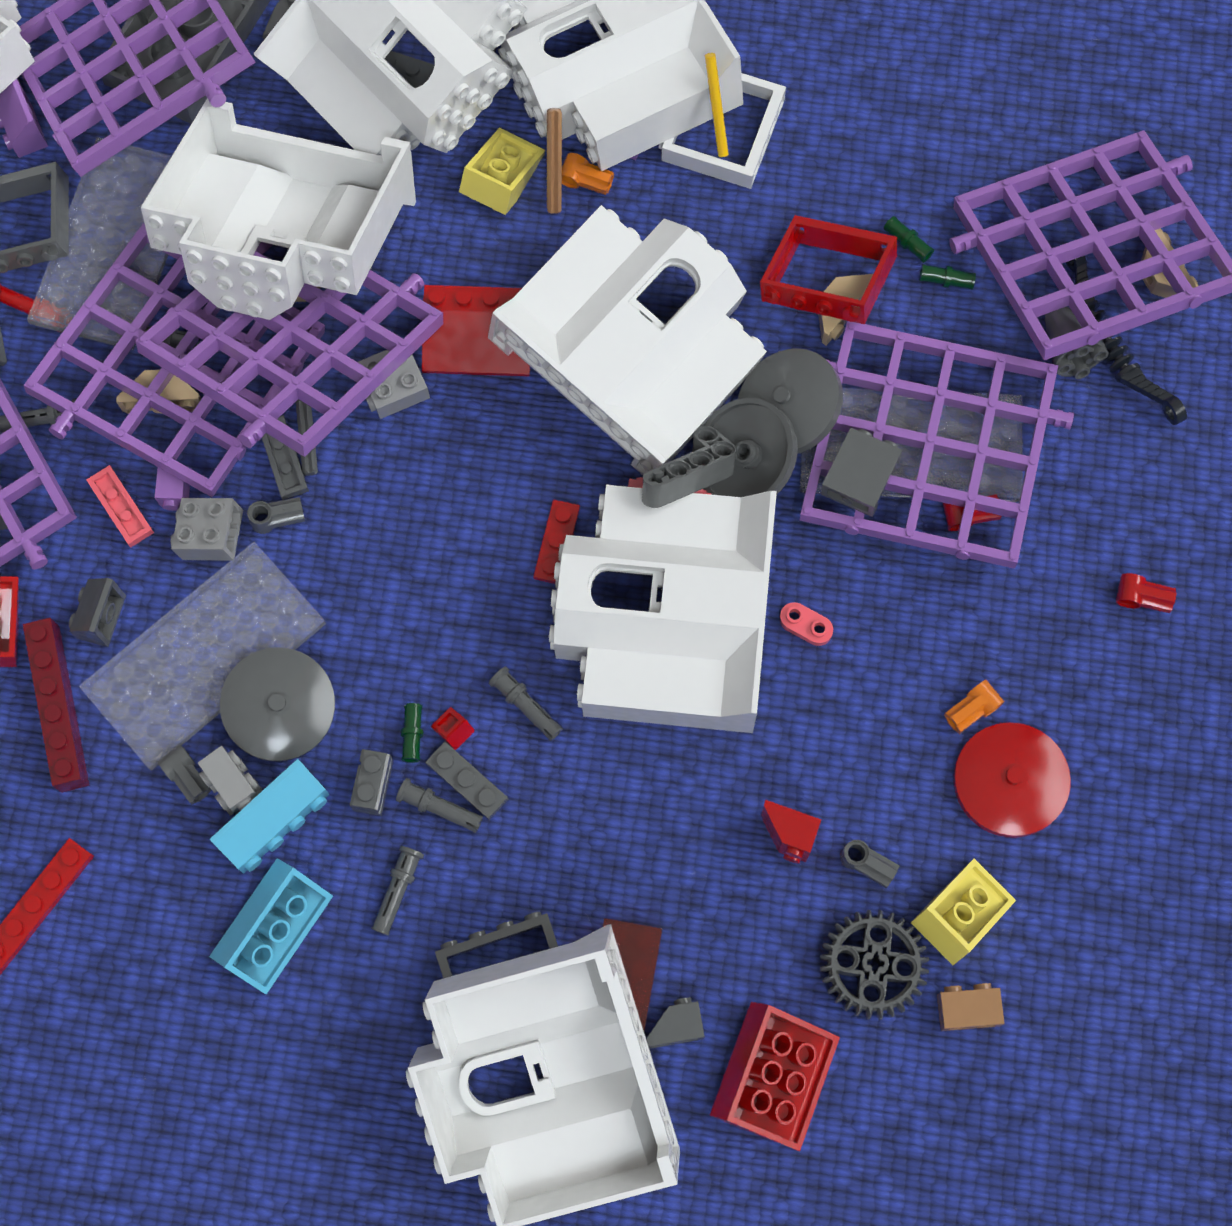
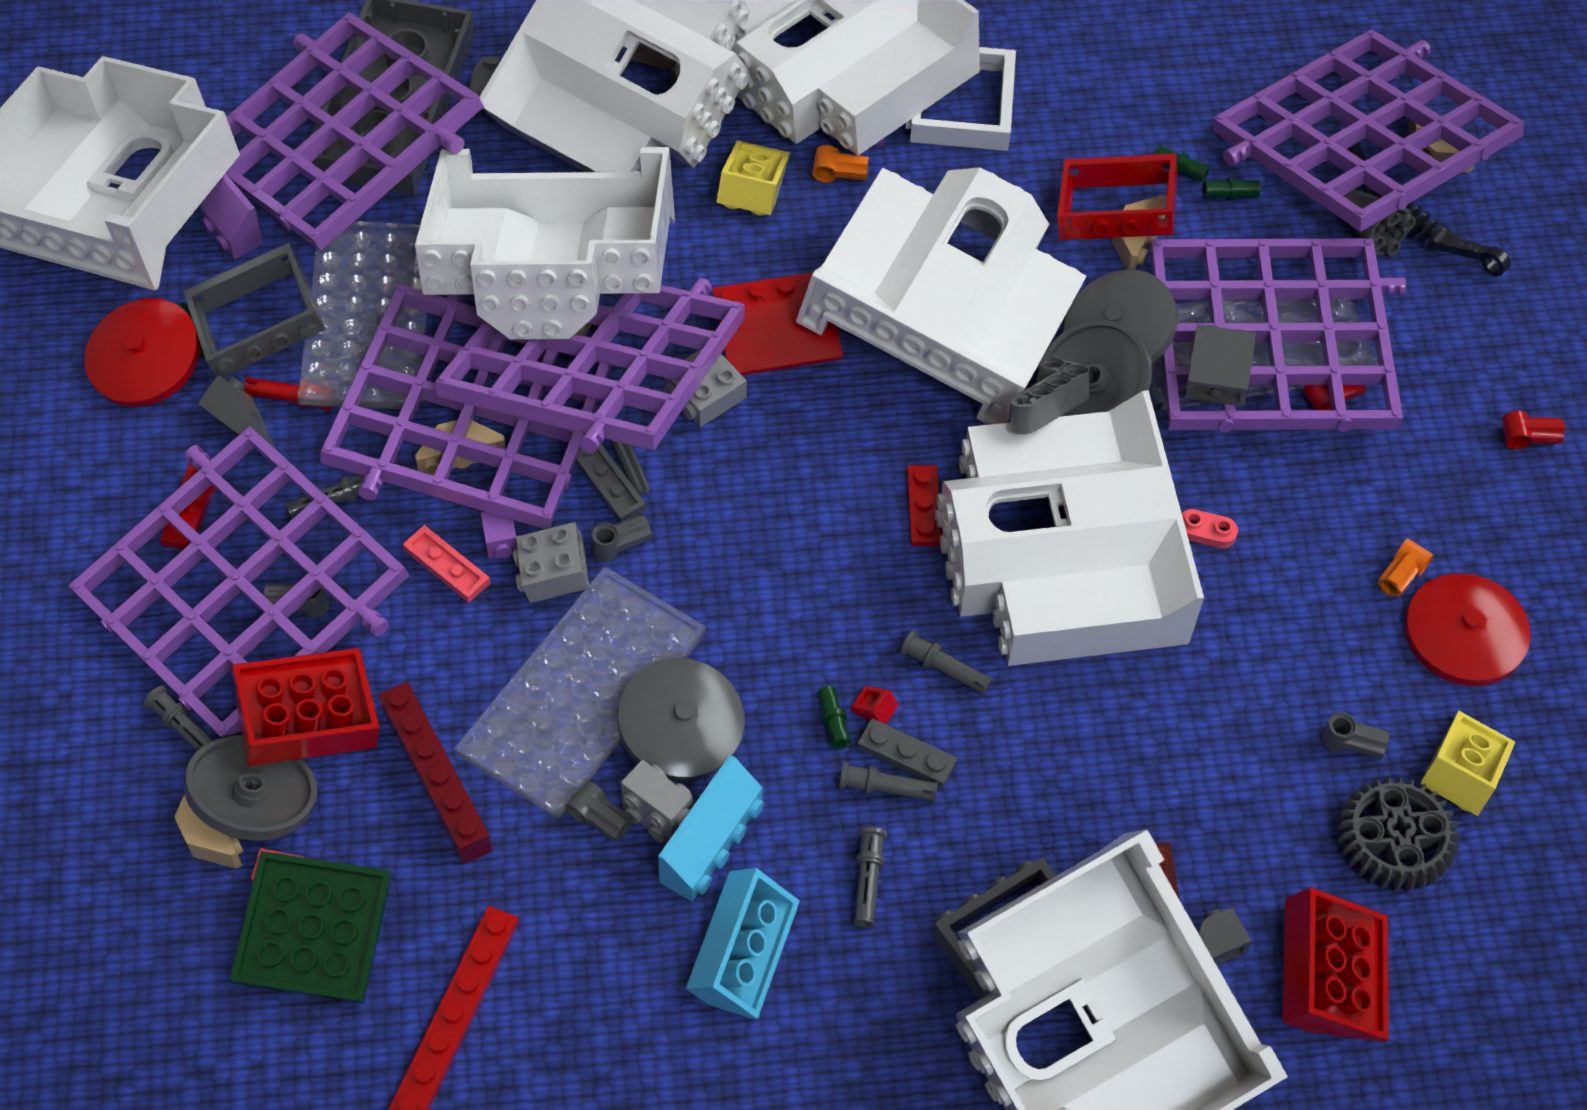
camera: 20 degrees left, 15 degrees down
(97, 611) = (453, 668): dark grey slope -> none
(371, 782) = (808, 773): dark grey brick -> none
(554, 160) = (810, 151): medium nougat axle -> none
(716, 104) = (962, 66): yellow bar -> none
(790, 830) = (1266, 718): red slope -> none
(970, 1007) = (1511, 853): medium nougat brick -> none

